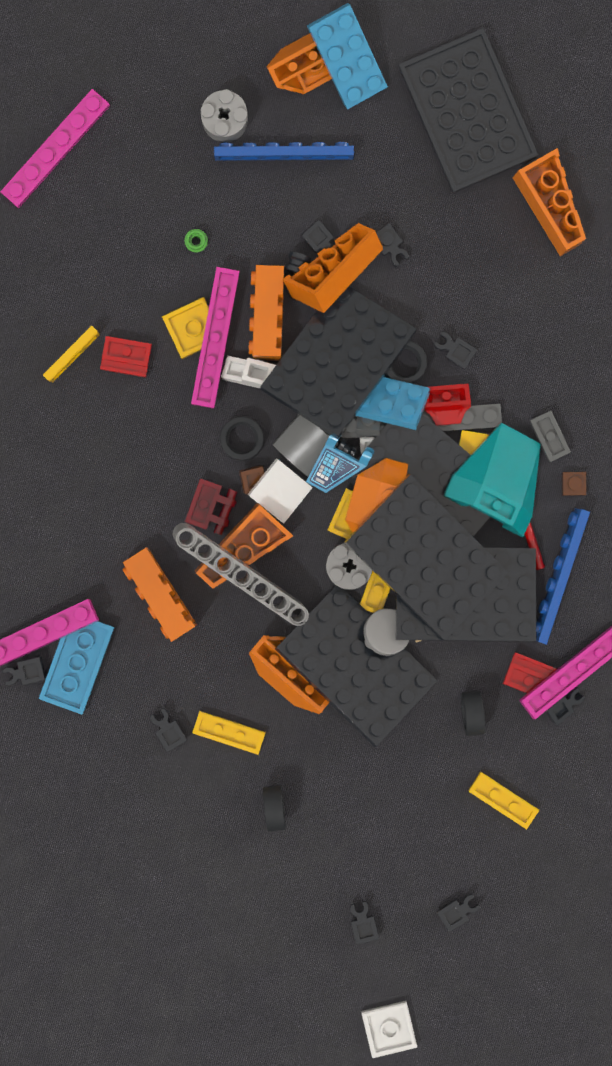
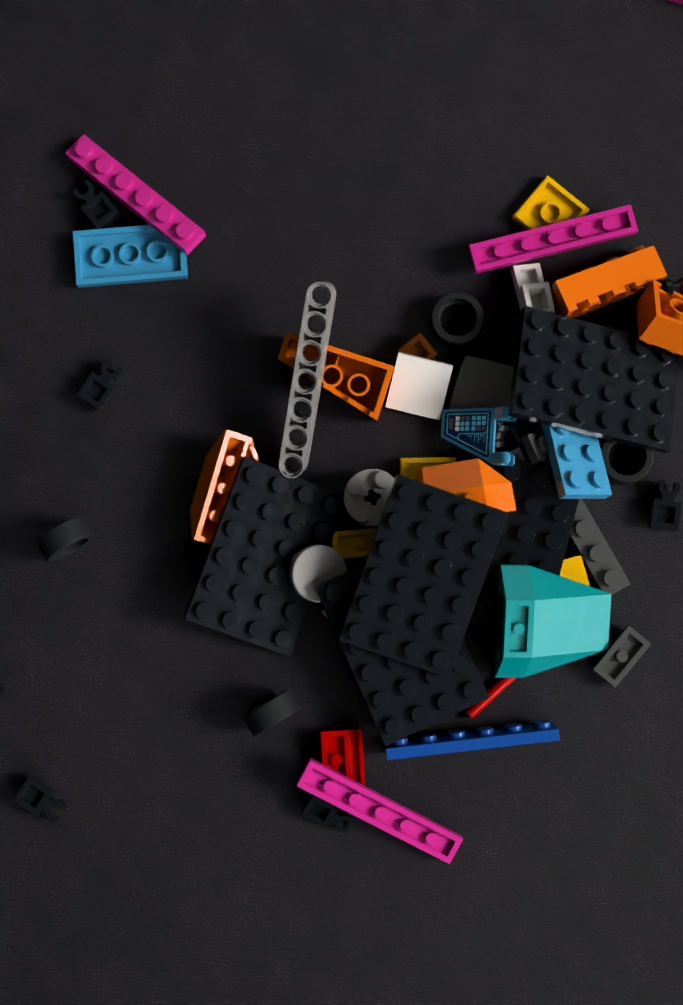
camera: 75 degrees right, 5 degrees down
(71, 354) = (460, 98): yellow tile -> none
(126, 356) = (486, 156): red plate -> none
(159, 593) = (244, 308): orange wedge -> none
(192, 234) = (651, 168): bright green plate -> none
(204, 503) = (366, 311): dark red plate -> none
(228, 732) = (128, 453): yellow tile -> none
(448, 403) = (603, 525): red slope -> none
(503, 800) = (189, 794): yellow tile -> none
(573, 483) = (581, 708): reddish brown plate -> none

